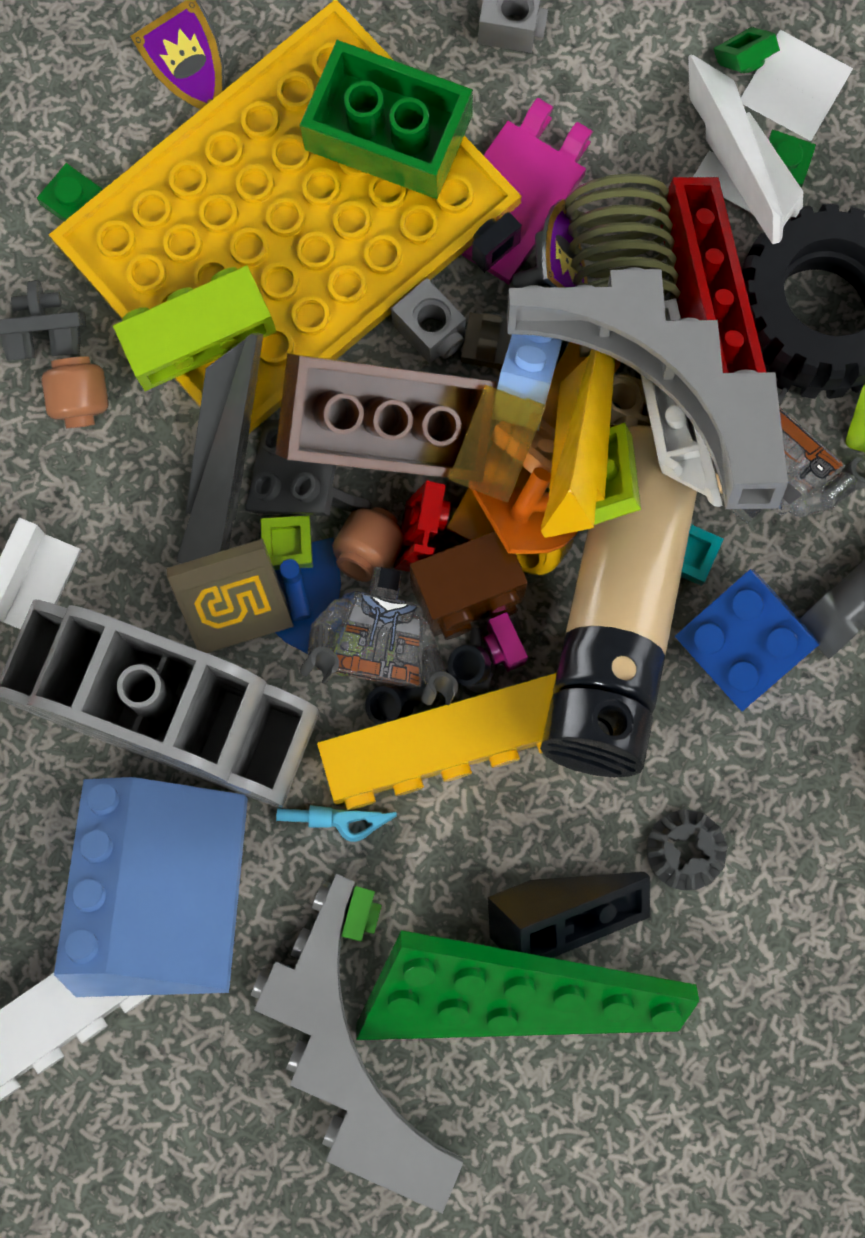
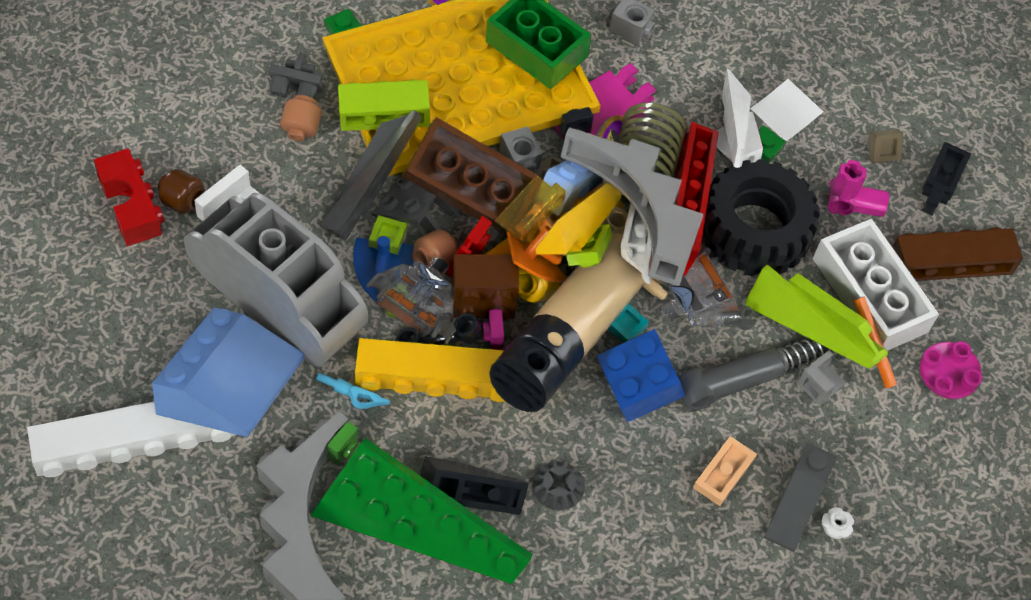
camera: 15 degrees right, 20 degrees down
(230, 596) = (350, 240): dark tan tile -> none
(747, 50) = (763, 82): green plate -> none

